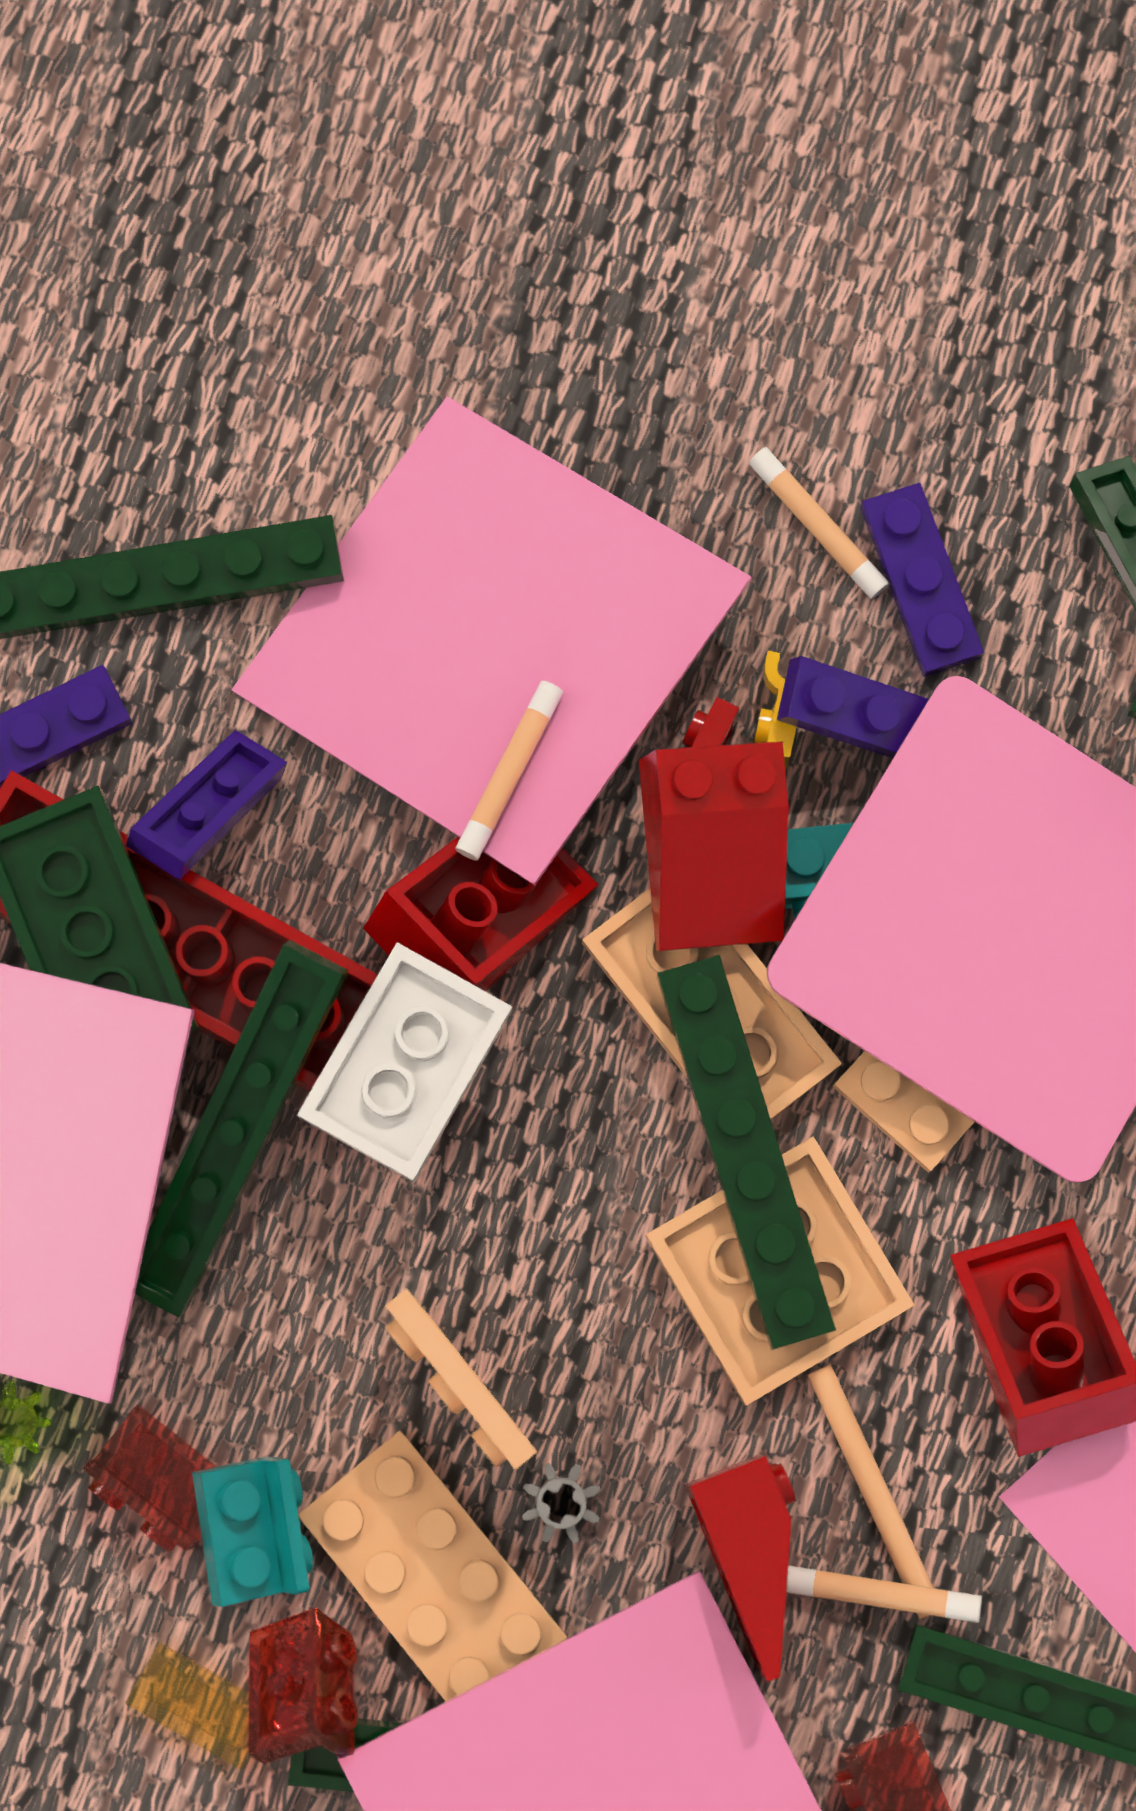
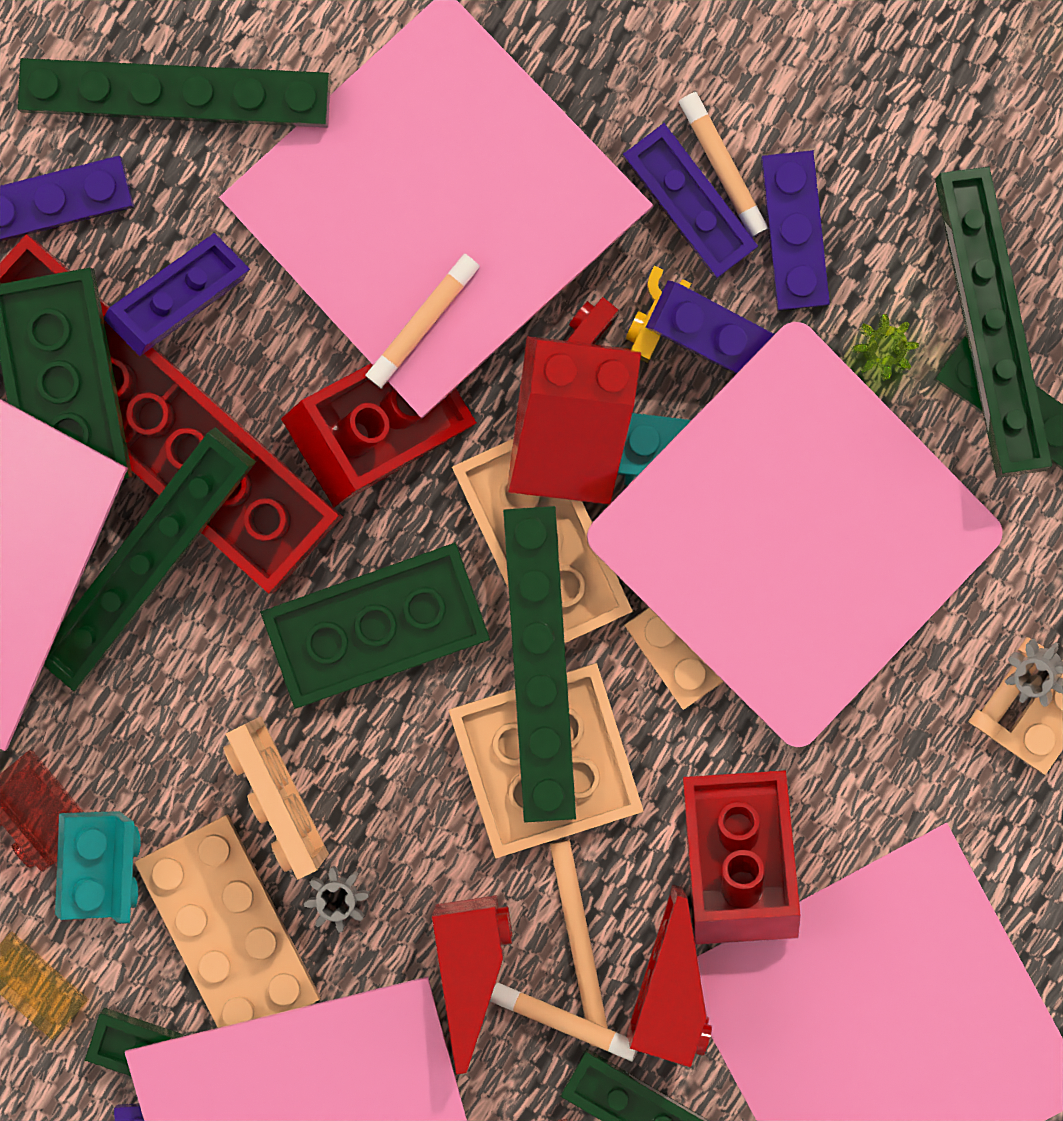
camera: 15 degrees right, 10 degrees up
(301, 1687) = (109, 992): clear red bracket -> none
(405, 1062) = (286, 541): white plate -> none
(536, 1152) = (375, 625): none -> dark green plate
(791, 570) = (690, 201): none -> dark purple plate
(1008, 1523) = (670, 1006): none -> red slope
(1046, 679) = (899, 348): none -> clear neon green gear

